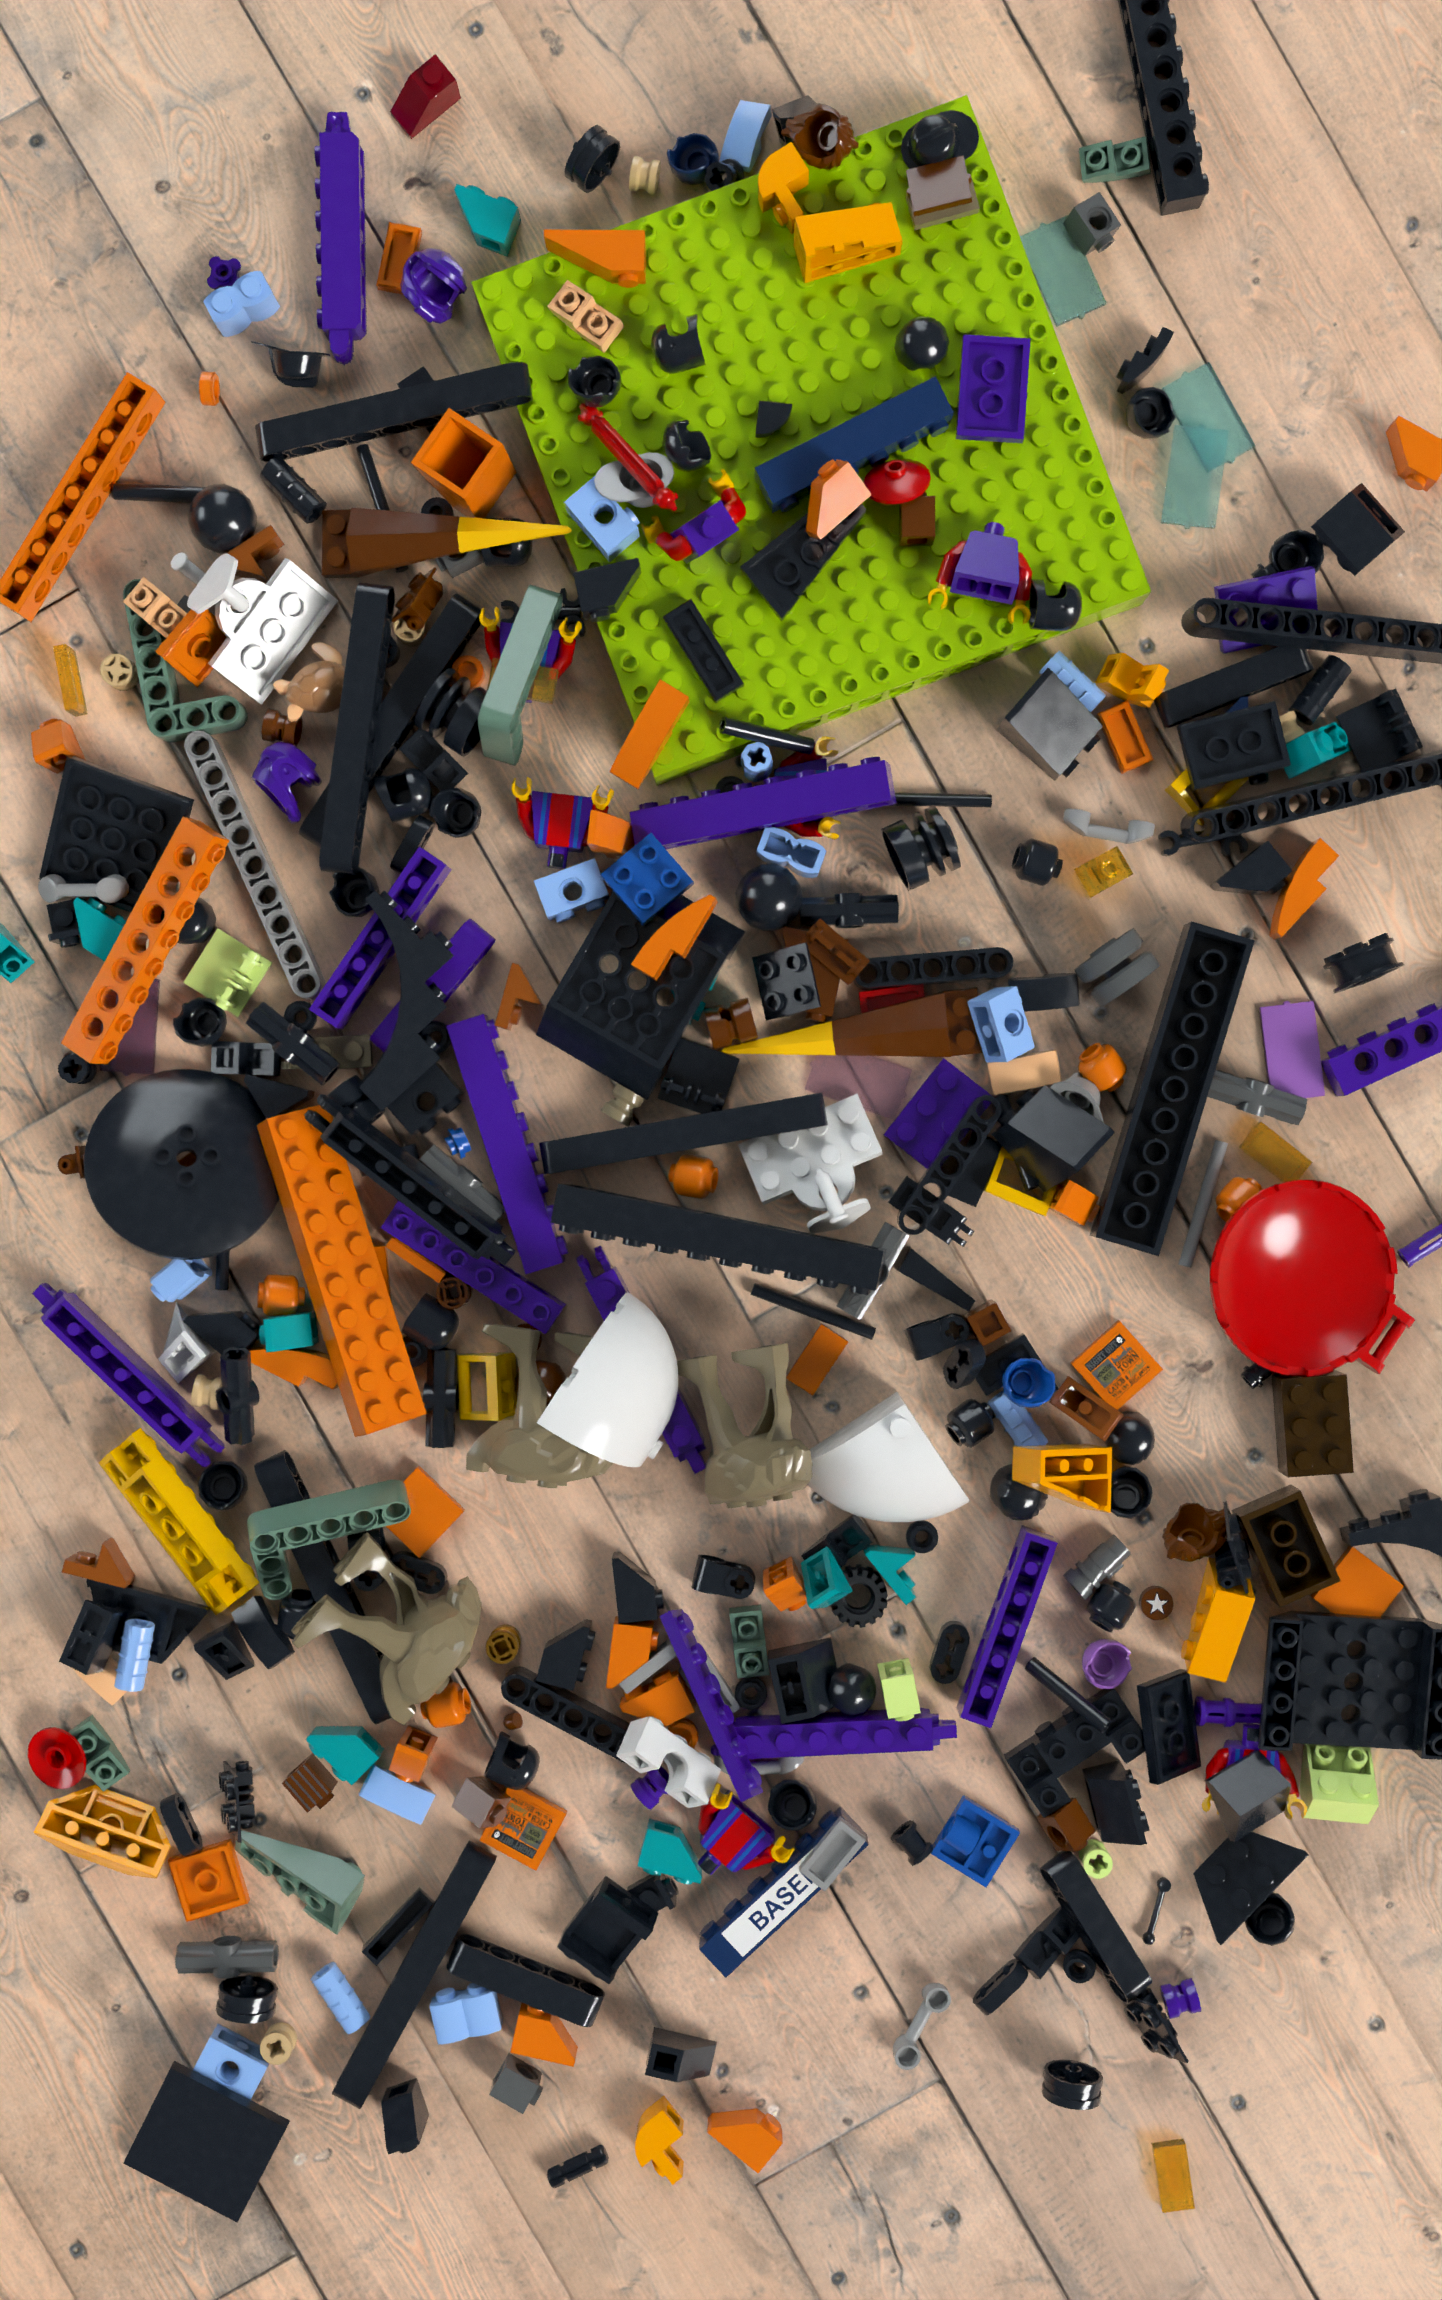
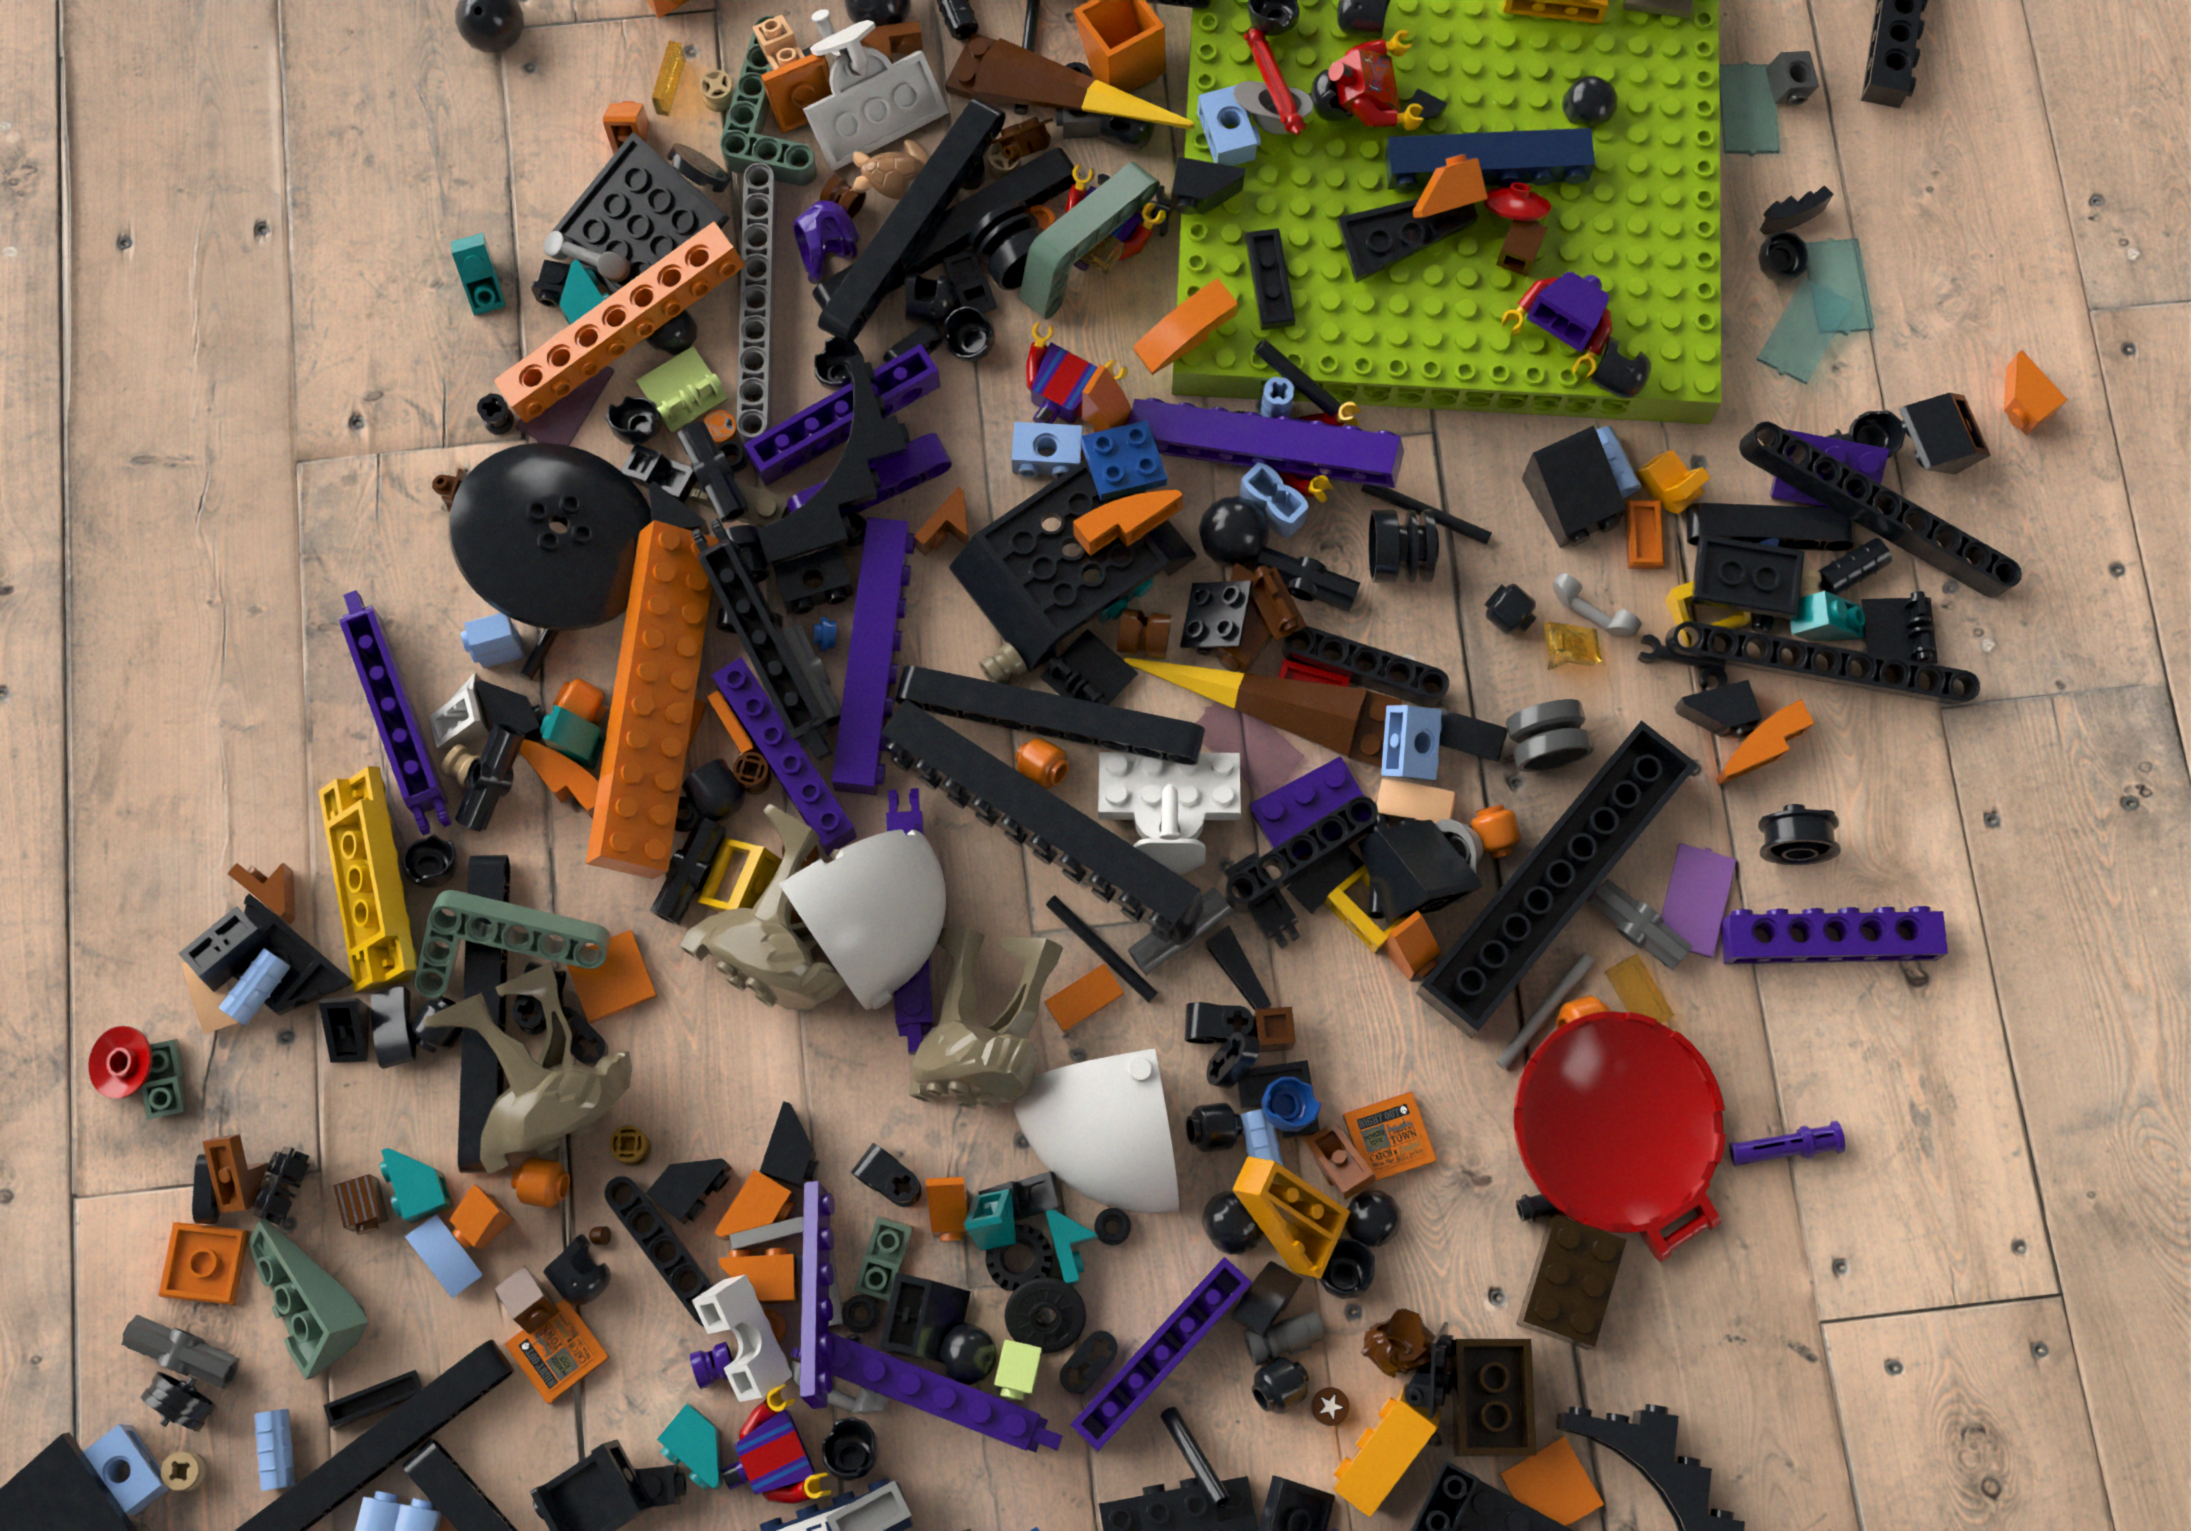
camera: 25 degrees right, 15 degrees down
(107, 1831) = (127, 1158): light orange wedge -> none
(141, 760) = (698, 167): none -> black tile
(197, 1809) = (232, 1178): none -> dark orange slope
(277, 993) = (721, 426): none -> orange tile
(703, 530) = (1318, 169): torso -> none
(715, 422) = (1369, 86): none -> red torso
(901, 1616) = (1051, 1294): none -> black wheel
(993, 388) = (1640, 164): dark purple plate -> none
(1073, 1543) = (1266, 1298): none -> black slope
(1106, 1663) = (1250, 1444): medium lavender hair -> none
(1115, 162) = (1829, 37): sand green slope -> none

